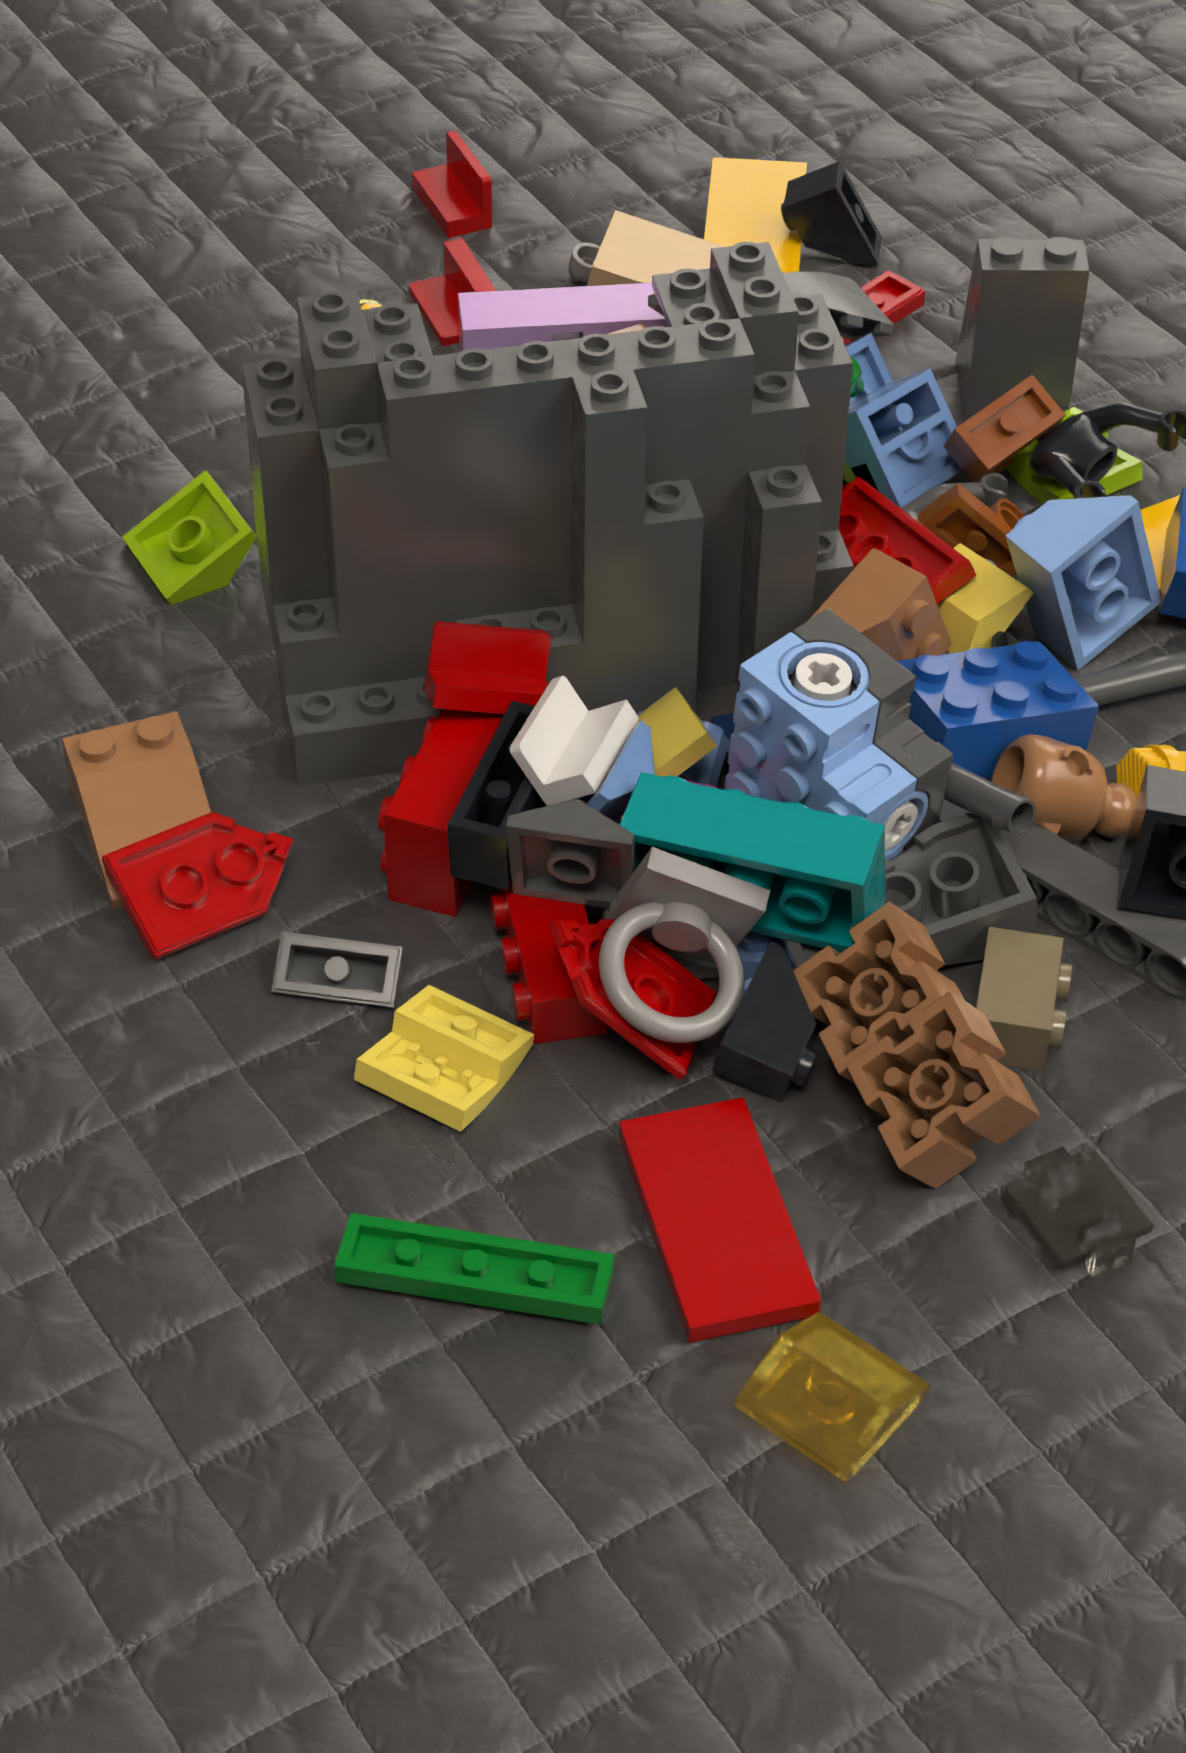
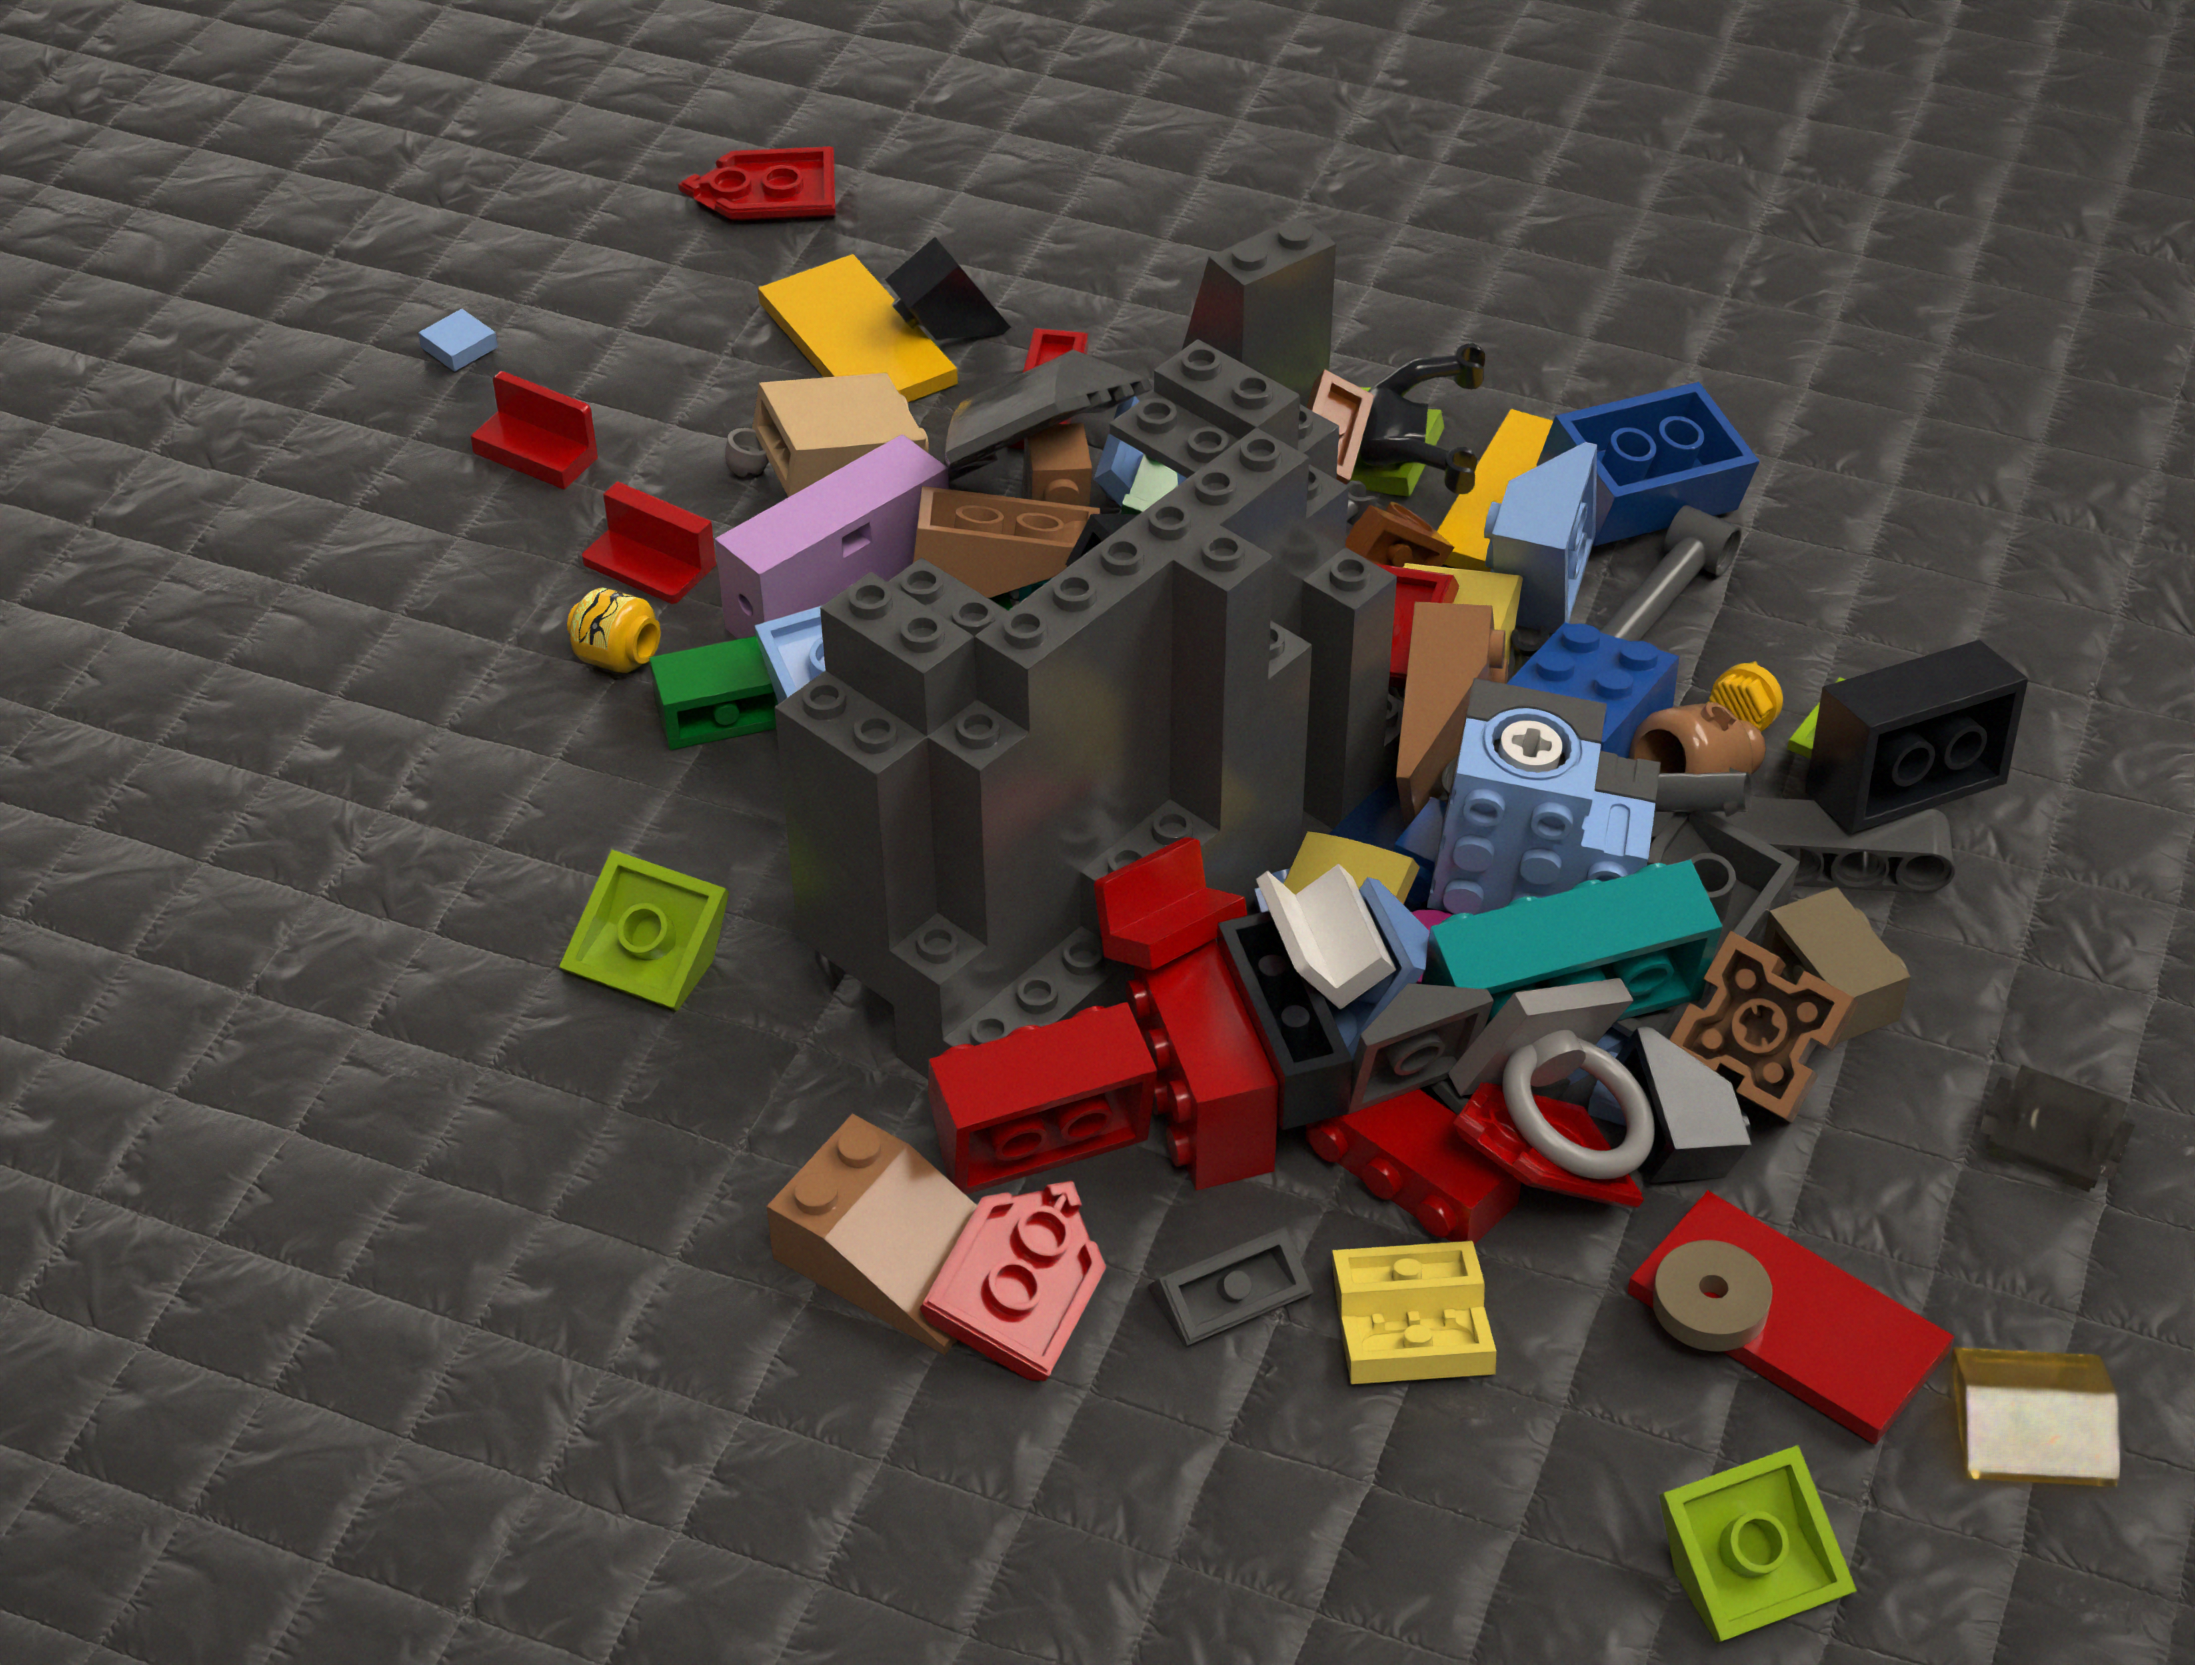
camera: 35 degrees left, 0 degrees up
(305, 766) = (1042, 1097): none -> red slope
(473, 108) = (458, 340): none -> light blue tile
(475, 1268) = (1622, 1502): green plate -> none
(510, 1344) = (1754, 1544): none -> lime slope
(654, 1187) = (1707, 1321): none -> dark tan piece
(803, 93) = (768, 184): none -> red tile
(942, 1090) = (1891, 1081): medium nougat brick -> none

